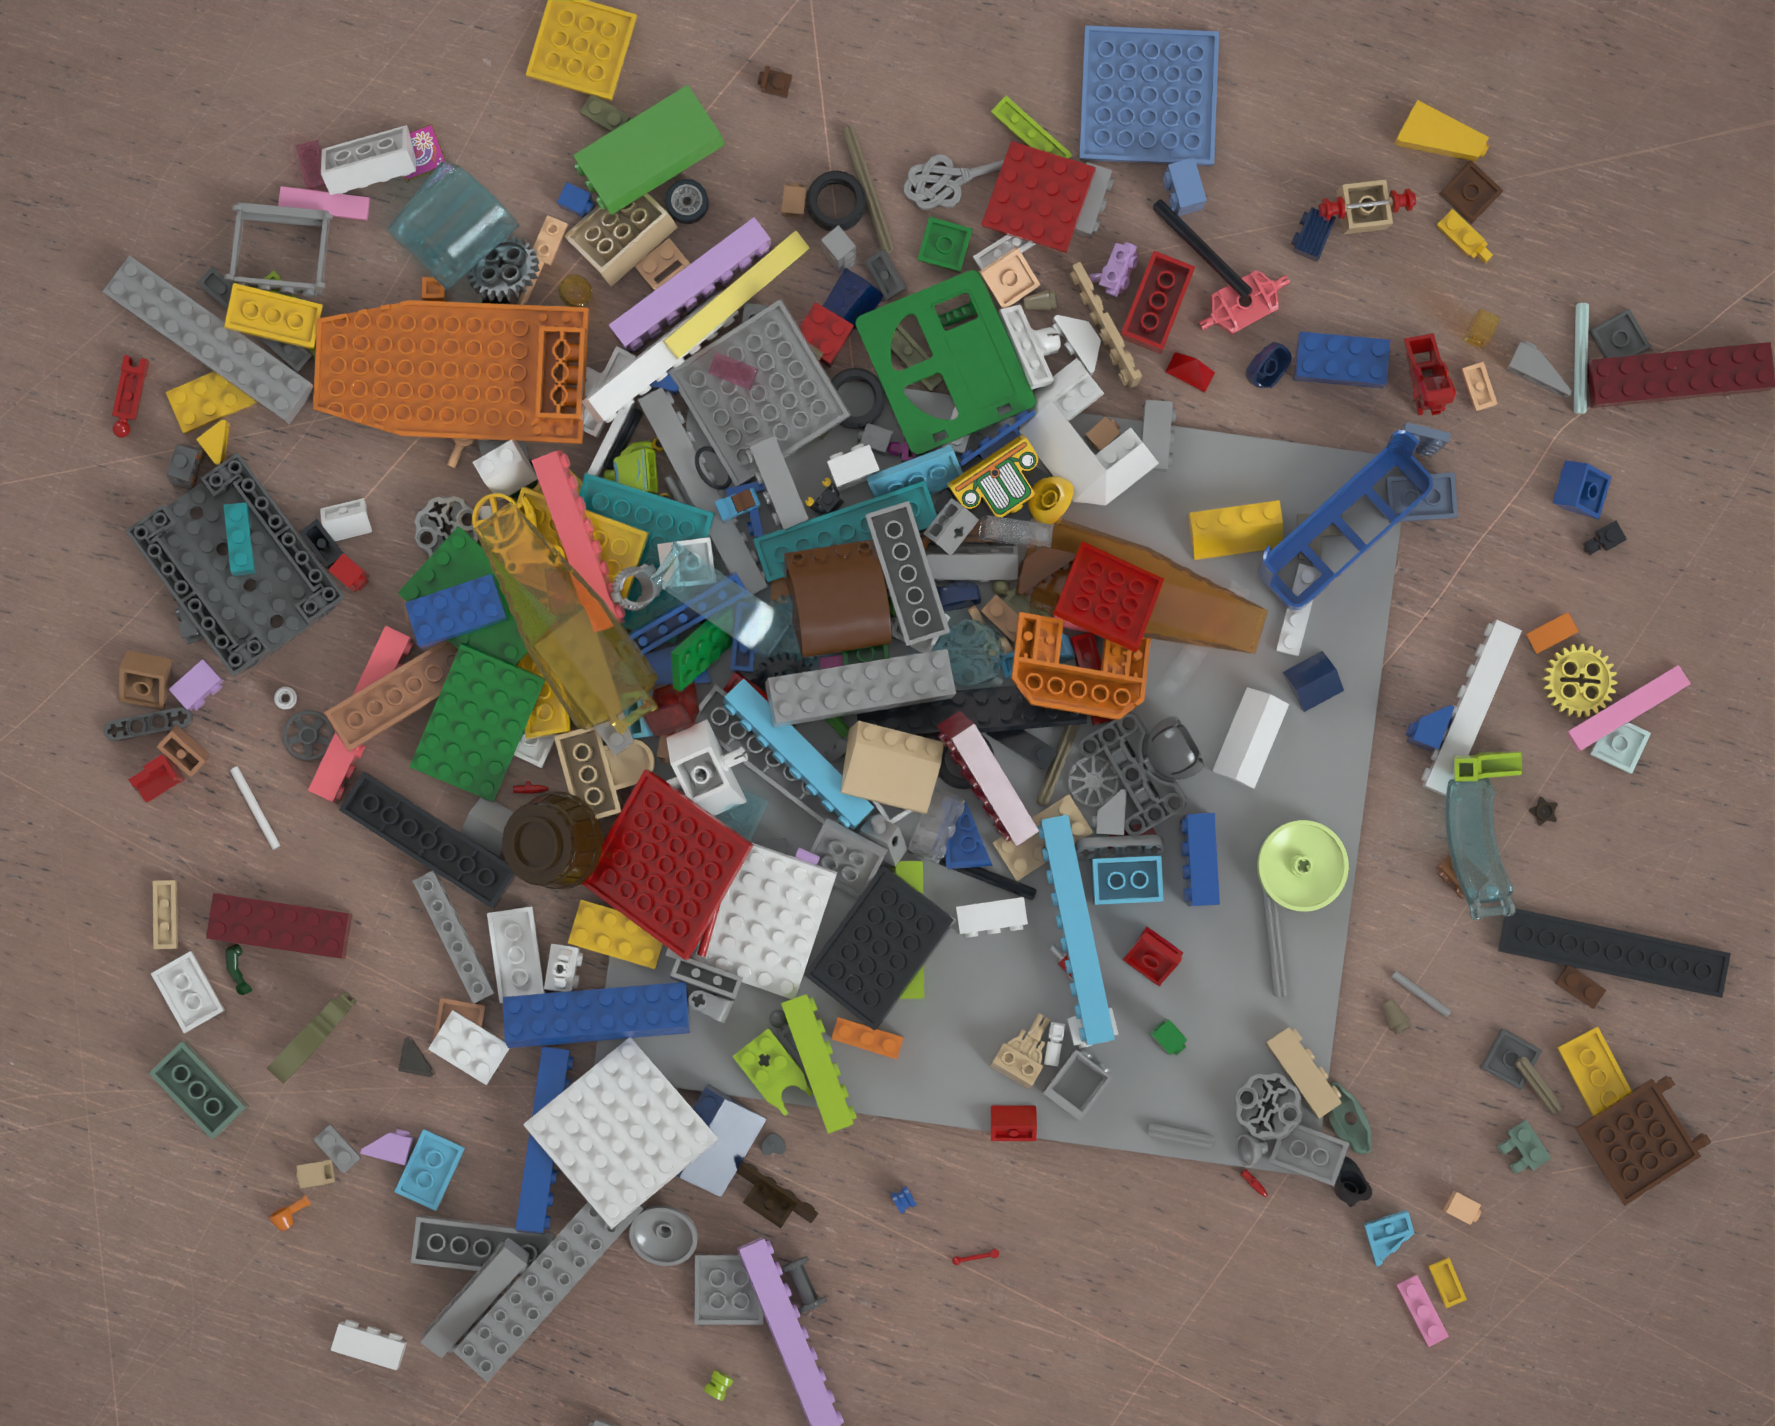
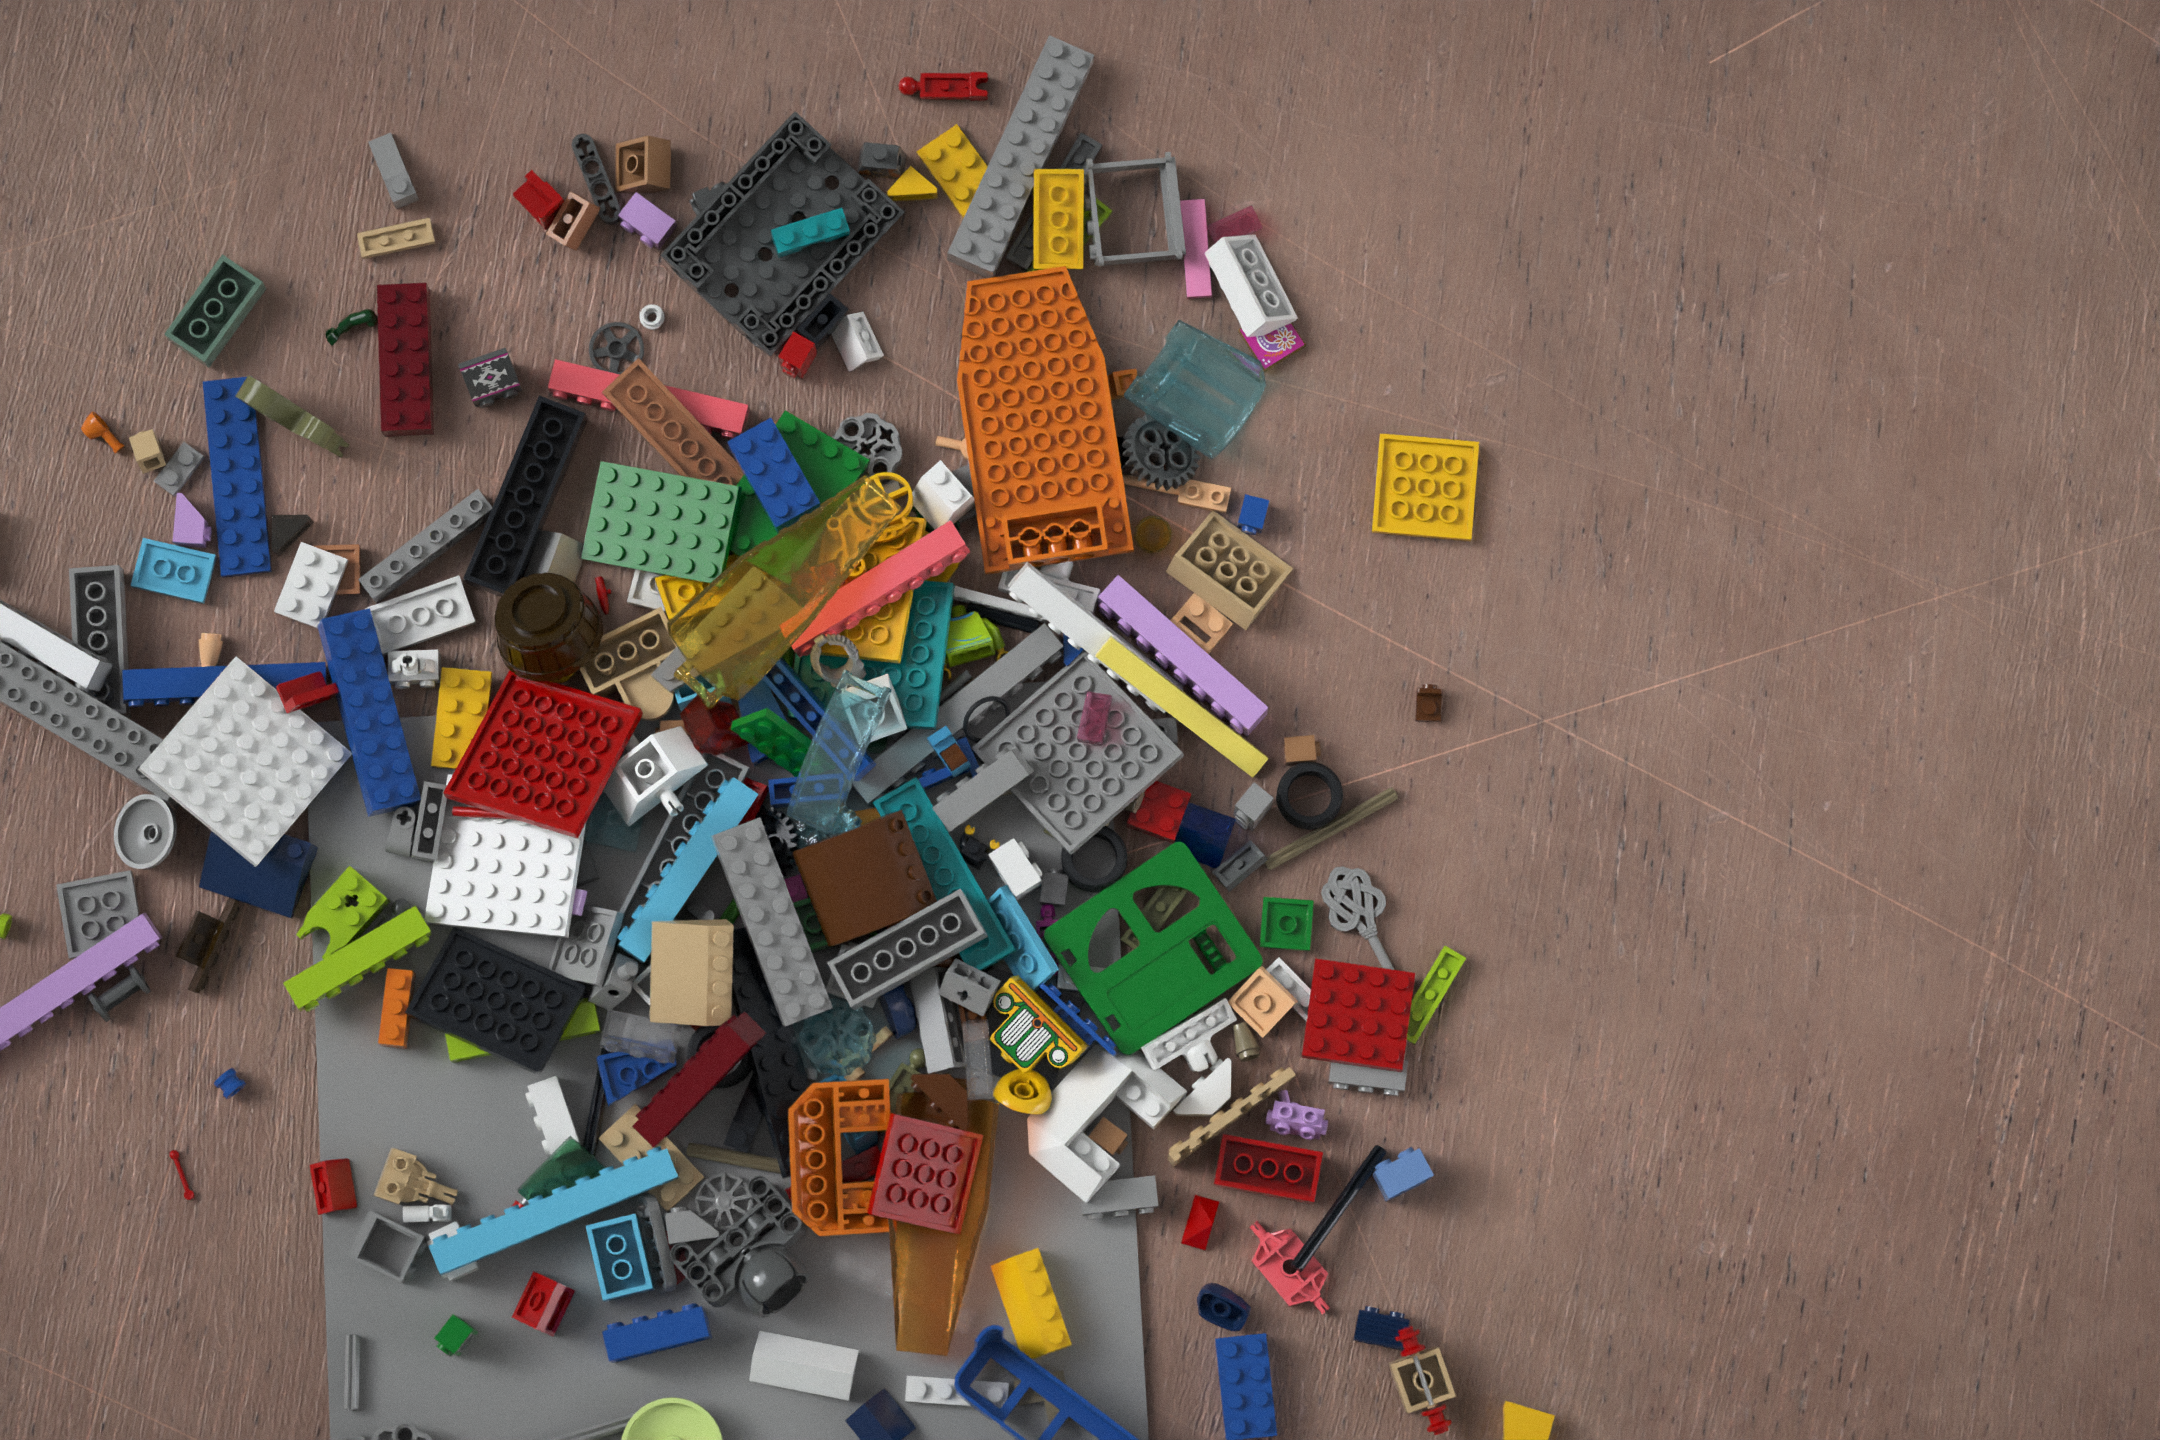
camera: 85 degrees right, 5 degrees down
(101, 905) = (393, 171): none -> light grey slope
(188, 992) = (318, 279): white plate -> none
(255, 808) = (528, 309): white bar -> none
(314, 850) = (490, 378): none -> dark grey slope
(357, 1098) = (236, 480): none -> blue plate
(508, 1149) = (210, 649): none -> light nougat cone
(567, 1067) = (305, 692): none -> red panel
(603, 113) = (1354, 528): olive plate -> none
(648, 150) = (1322, 581): bright green brick -> none
(691, 190) = (1277, 622): wheel -> none
(773, 1144) = (265, 932): dark grey piece -> none
(1001, 617) = (884, 1062): medium nougat brick -> none
(1039, 915) = (561, 1168): none -> clear green tile
(1149, 95) = (1499, 1117): medium blue plate -> none

